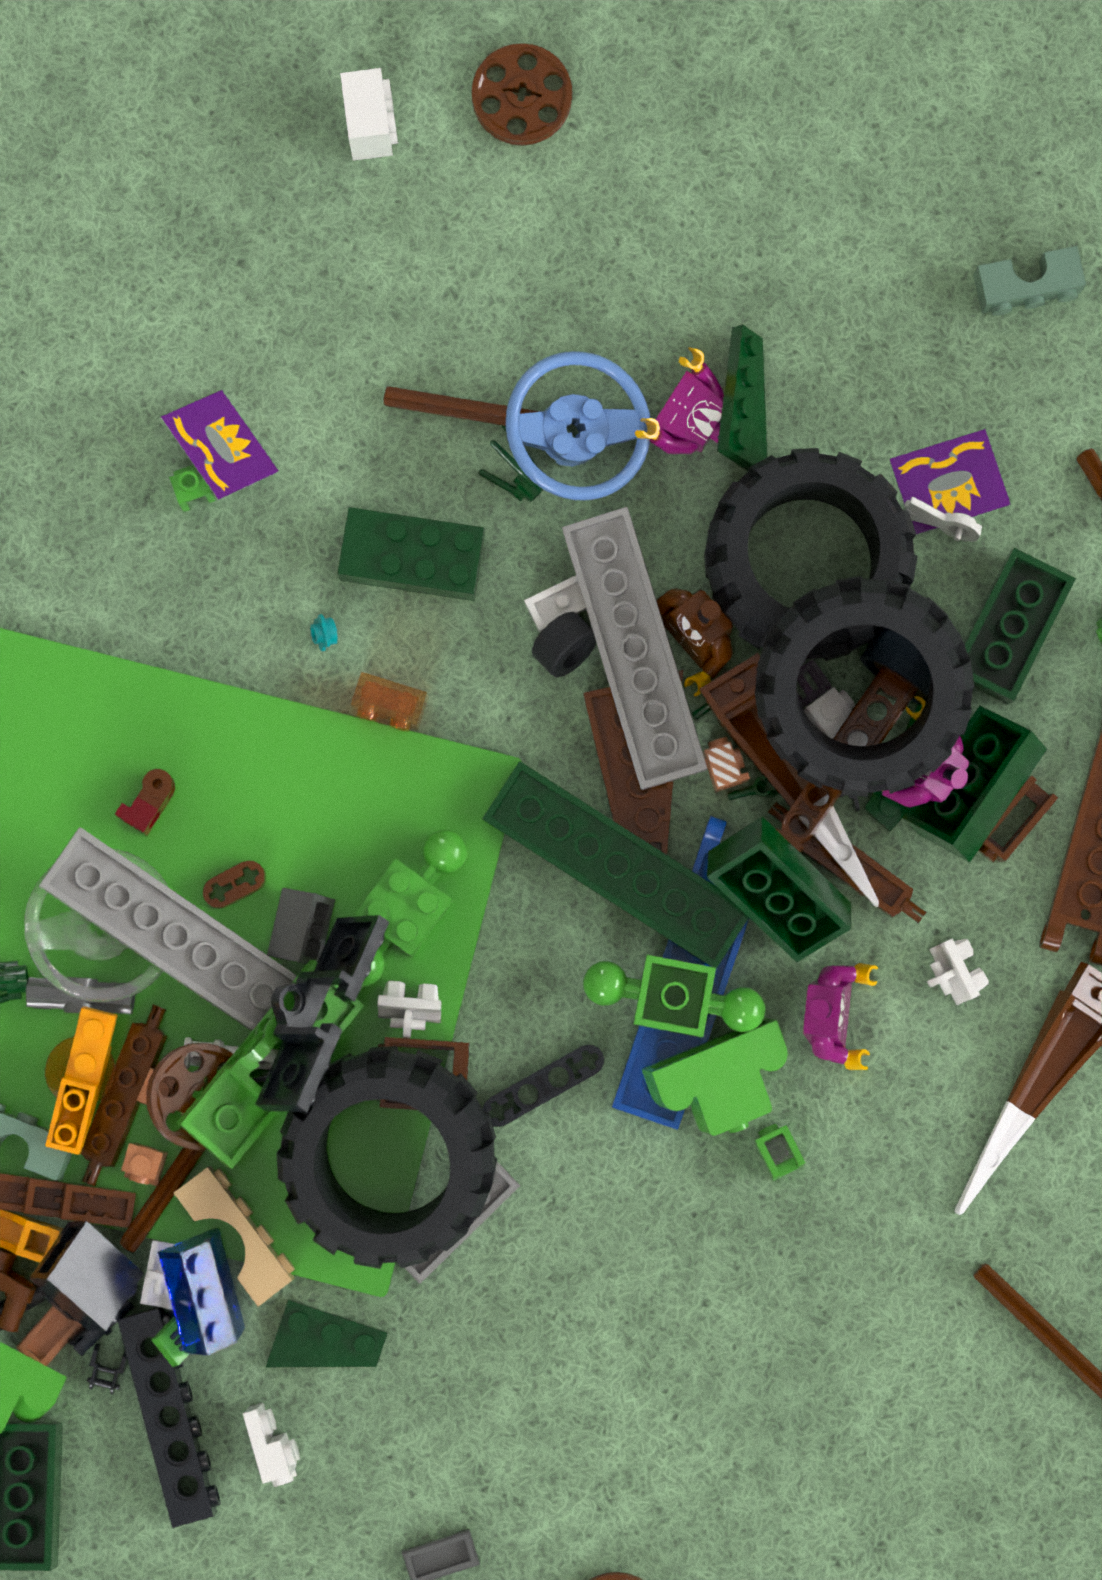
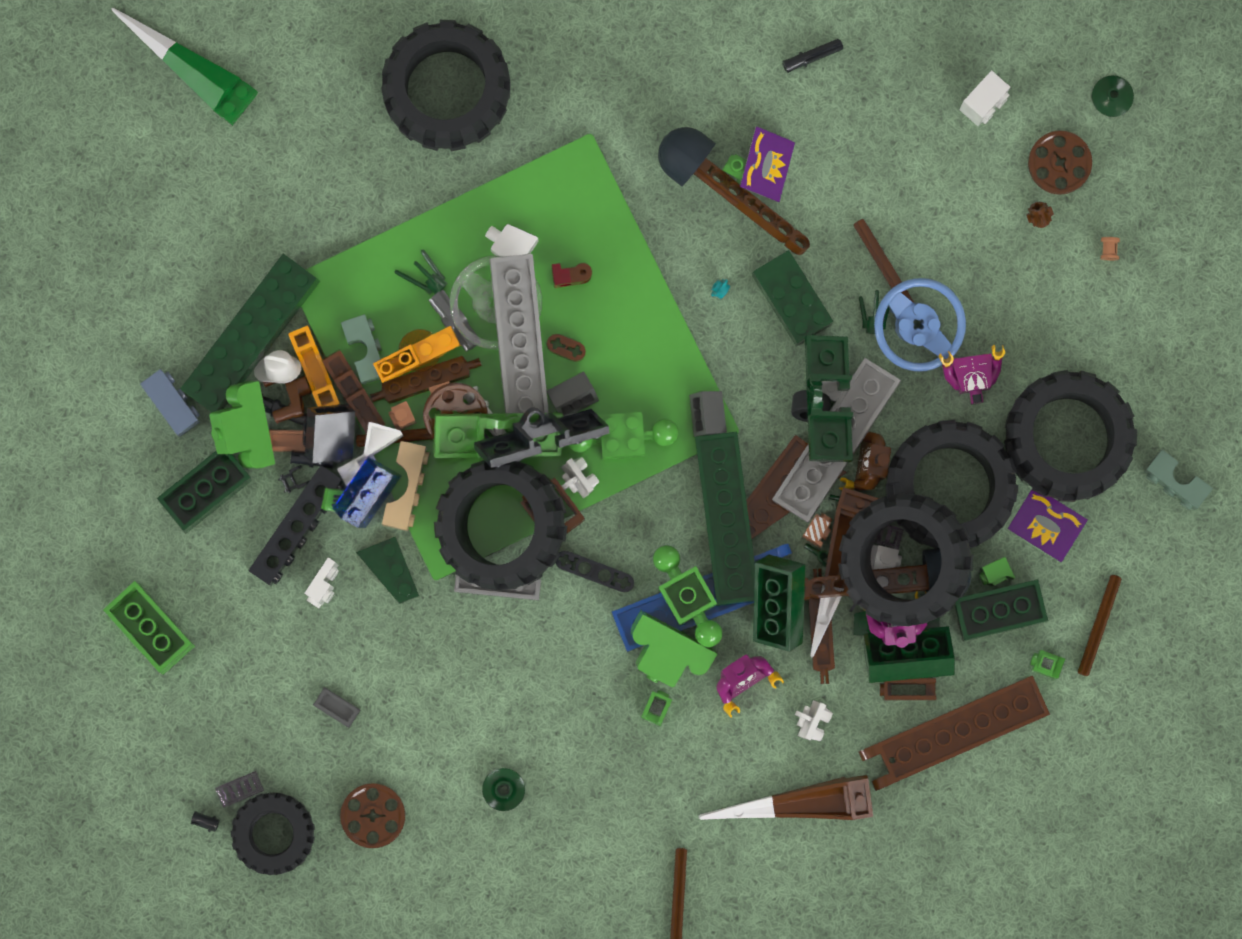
camera: 50 degrees right, 0 degrees up
(41, 840) = (511, 241): none -> white torso
(119, 533) = (685, 154): none -> piece
(133, 277) = (812, 55): none -> black axle
(147, 1218) = (379, 438): none -> white slope
(389, 701) = (714, 347): clear orange brick -> none
(466, 778) = (707, 413): none -> dark grey brick
(565, 170) = (1040, 214): none -> reddish brown gear
(616, 648) = (828, 430): none -> dark green plate
(678, 123) = (1110, 248): none -> nougat bush
(724, 1451) = (492, 793): none -> dark green dish
(743, 408) = (996, 396): dark green wing -> none
(885, 287) = (1110, 407): none -> black tyre
(955, 525) = (1027, 543): white piece -> none
(959, 592) = (996, 572): none -> bright green window

